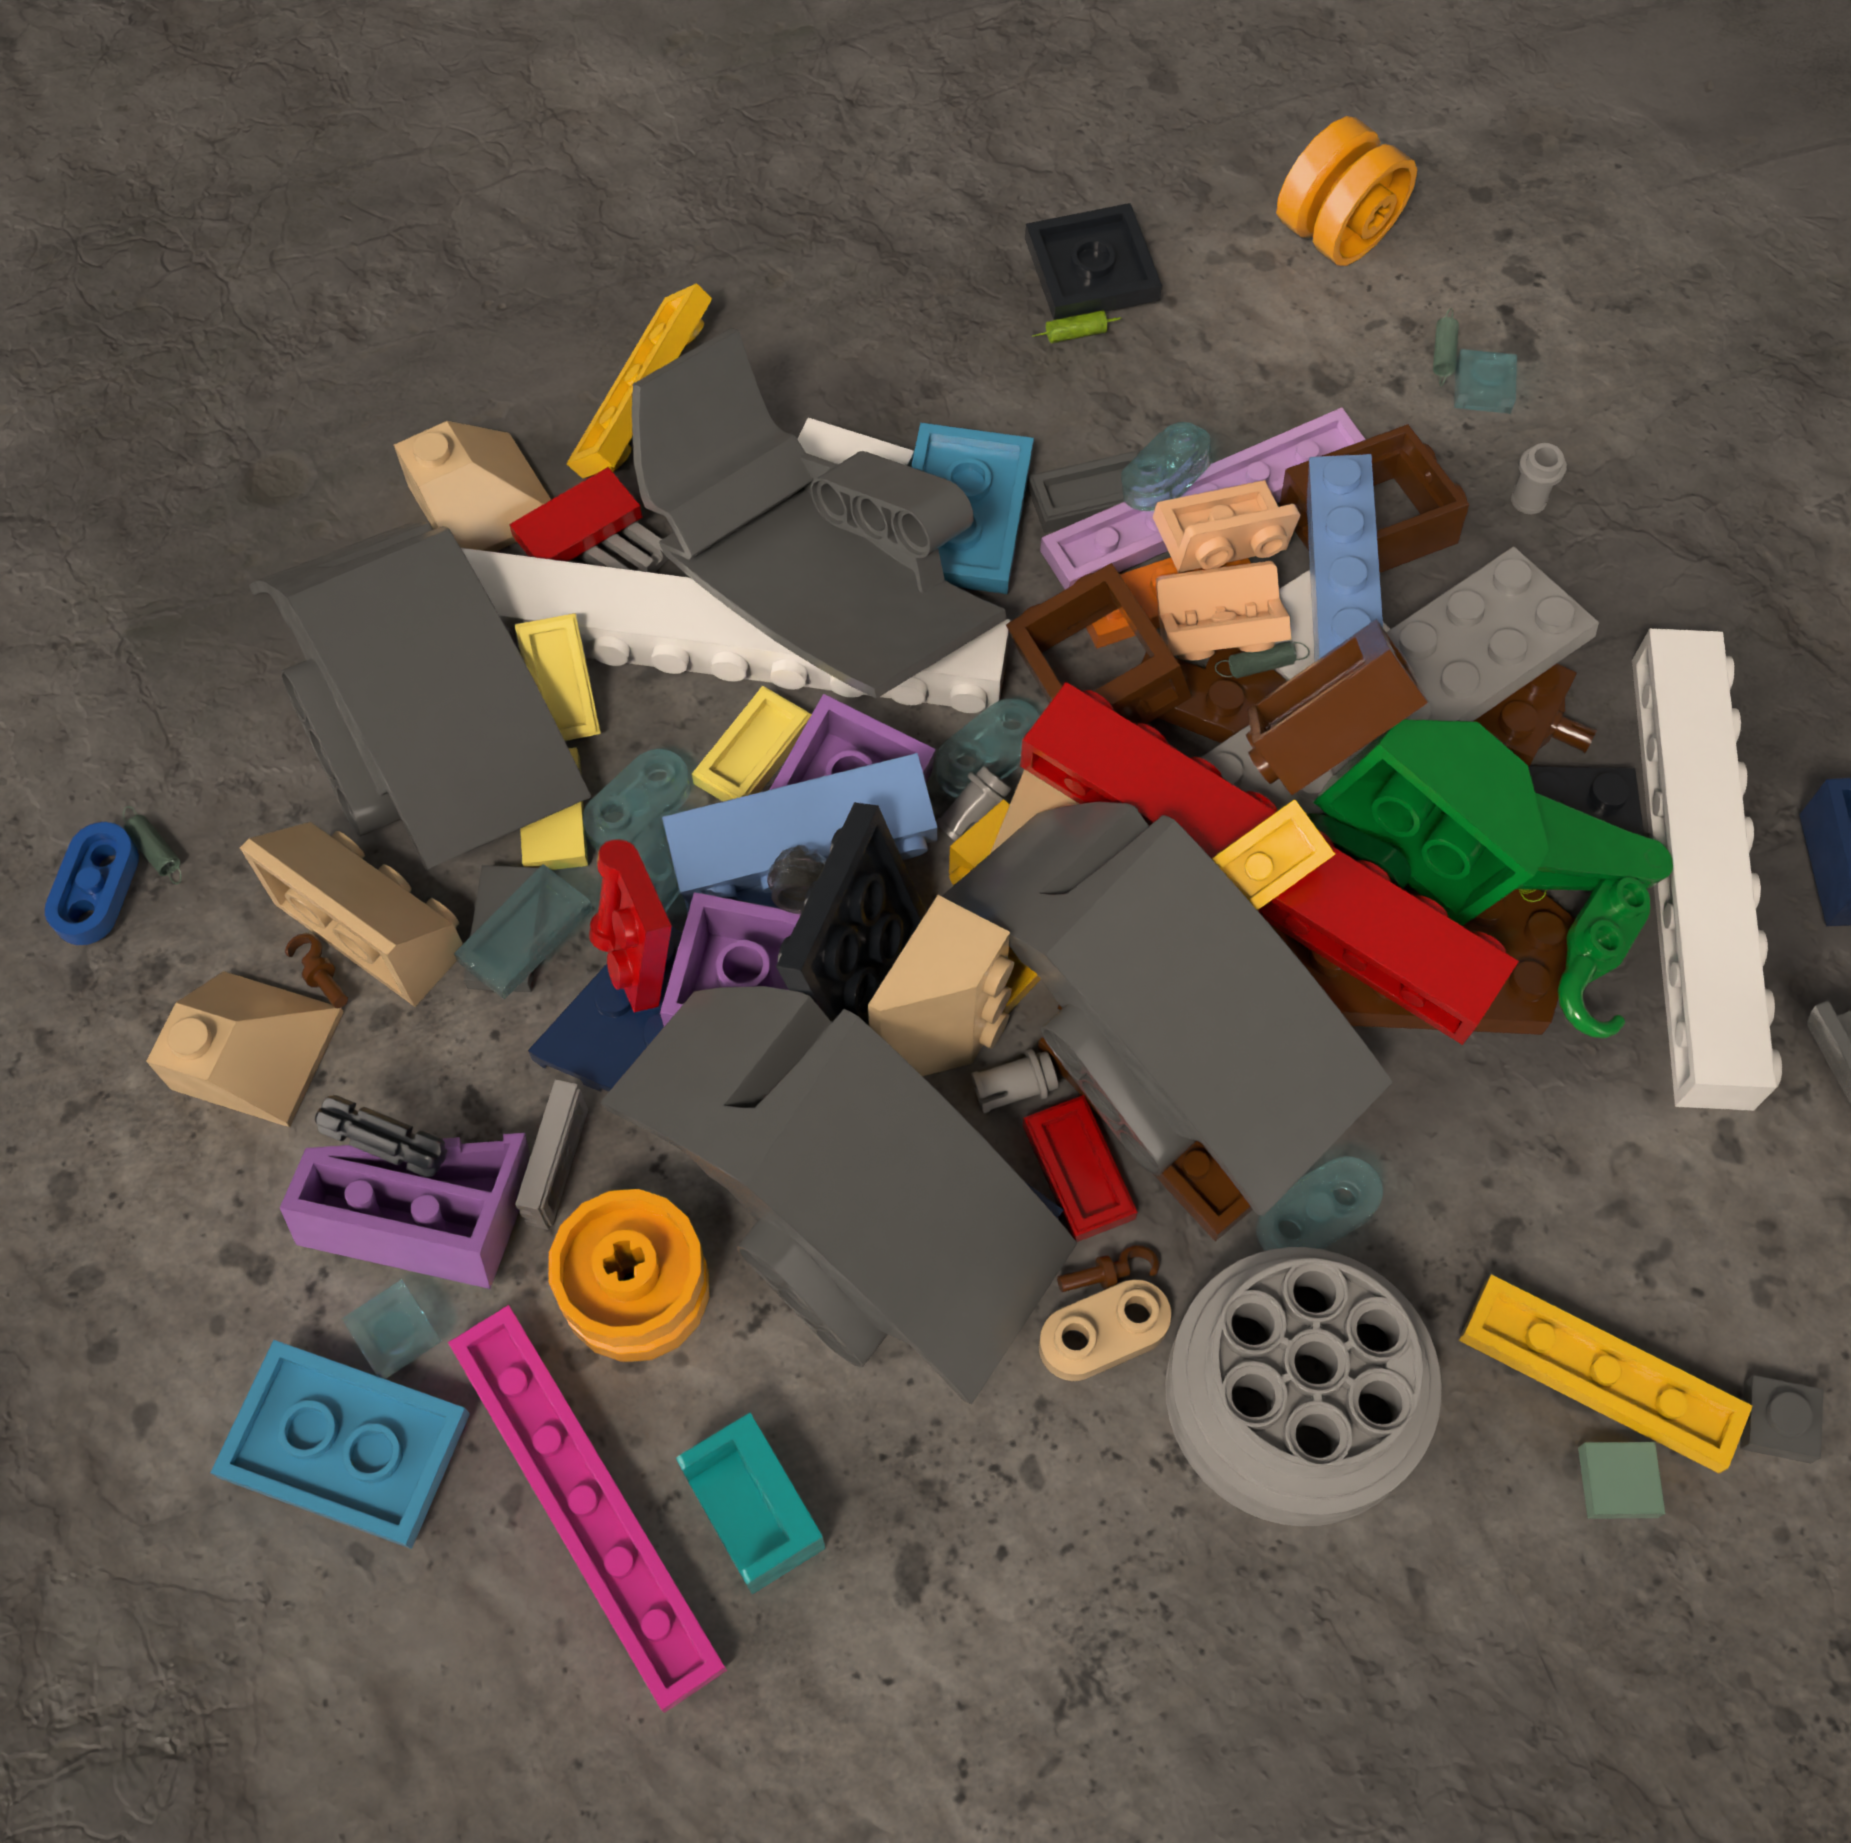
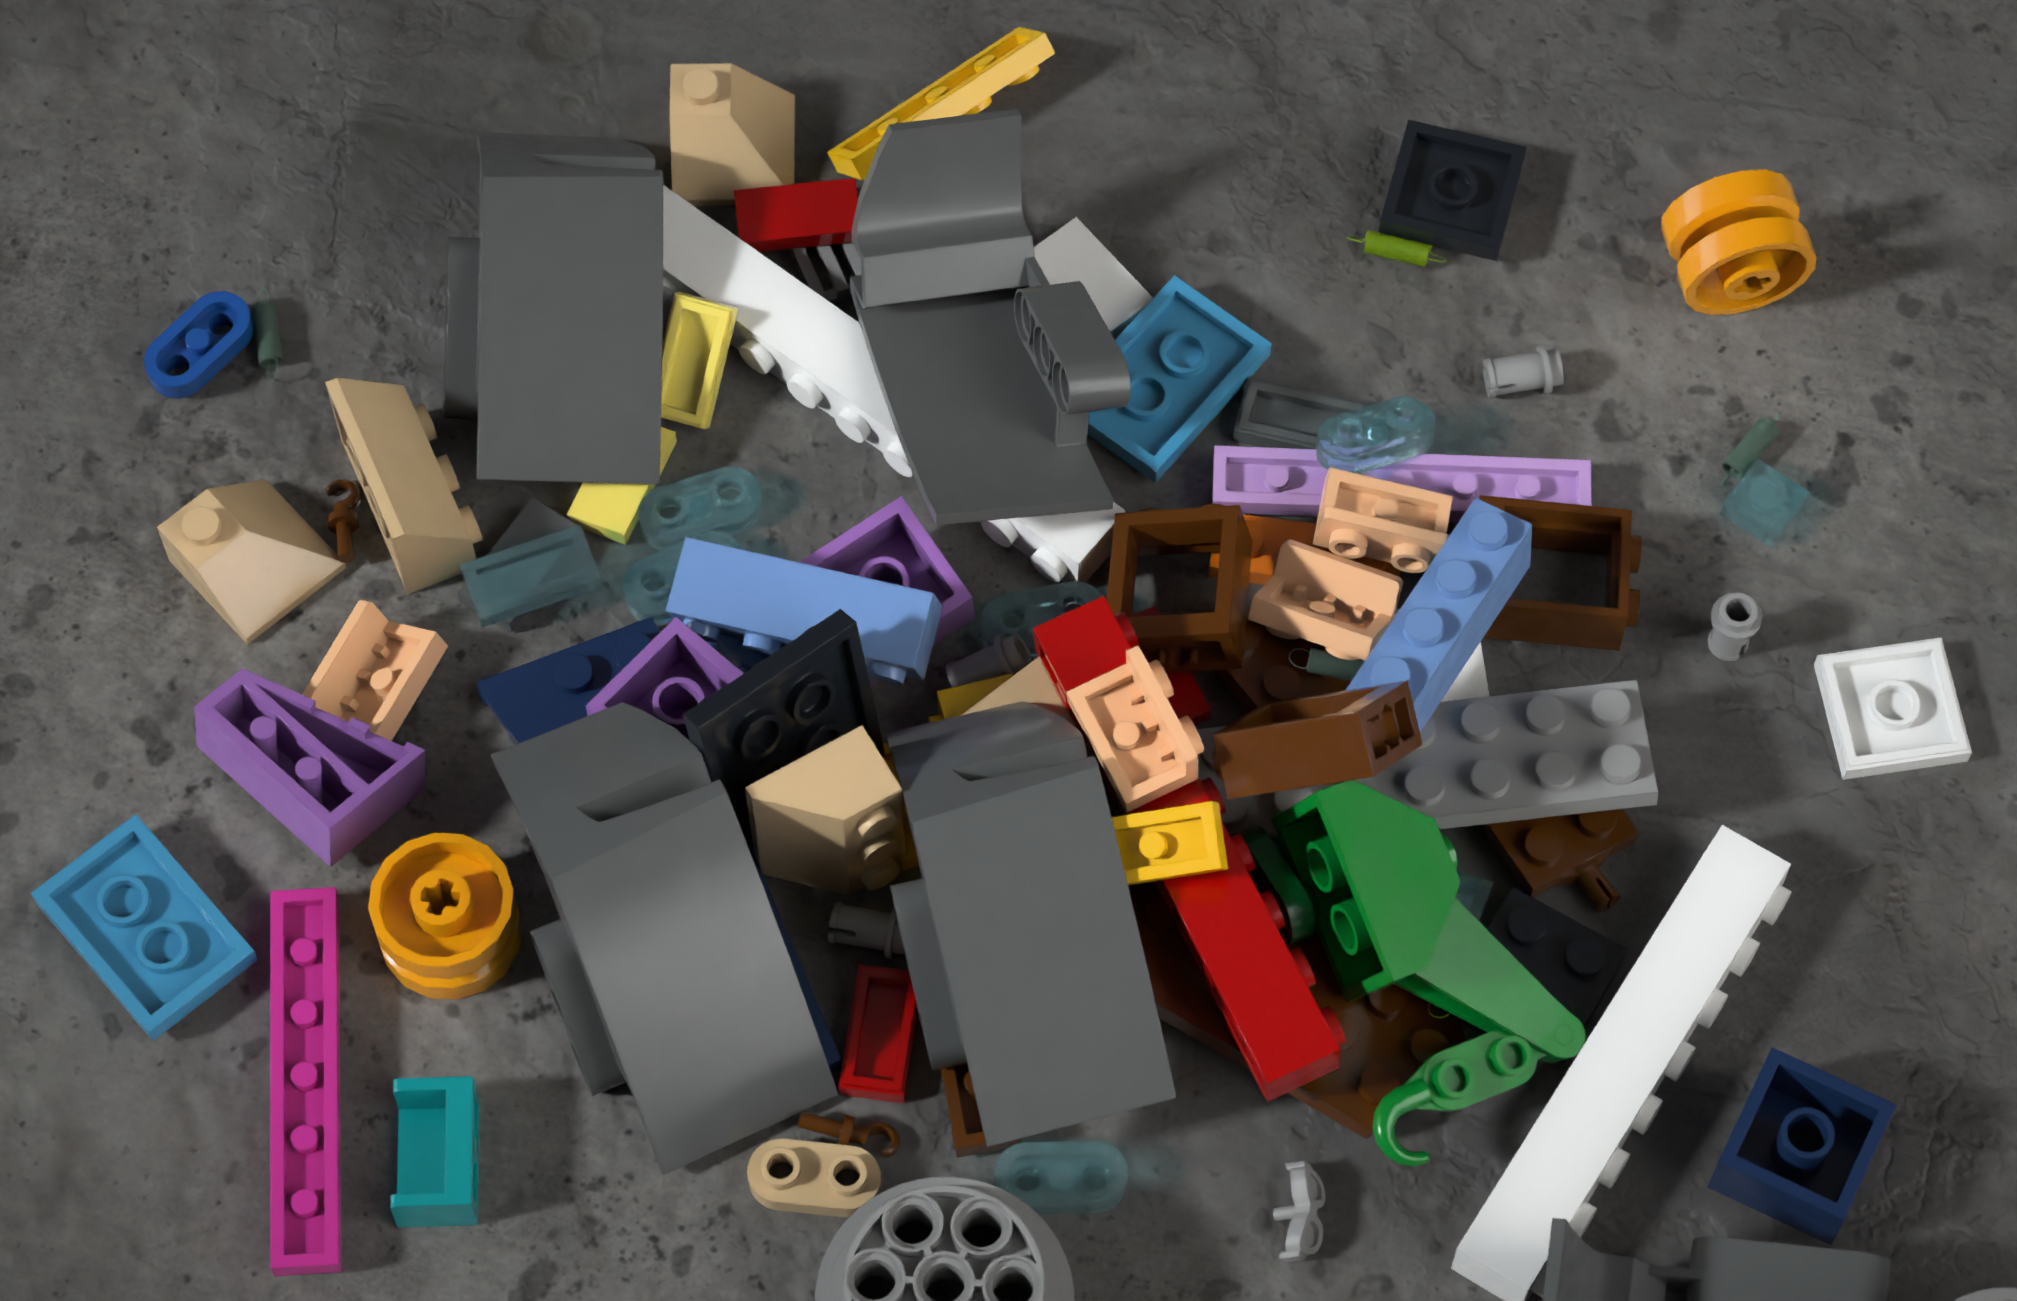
camera: 30 degrees right, 0 degrees up
(381, 1135) = (306, 690): black axle -> none
(391, 1330) = (233, 857): clear light blue plate -> none
(433, 1080) = (375, 670): none -> light nougat bracket
(552, 1155) = (443, 782): light grey tile -> none
(630, 925) = (611, 615): red plate -> none
(752, 747) = (827, 509): light yellow tile -> none
(792, 875) = (760, 642): clear smoke plate -> none
(1179, 773) = (1137, 731): none -> light nougat bracket
(1249, 363) = (1523, 372): none -> light grey pin
(1536, 1124) = (1305, 1227): none -> light grey piece
(1687, 485) = (1892, 708): none -> white tile

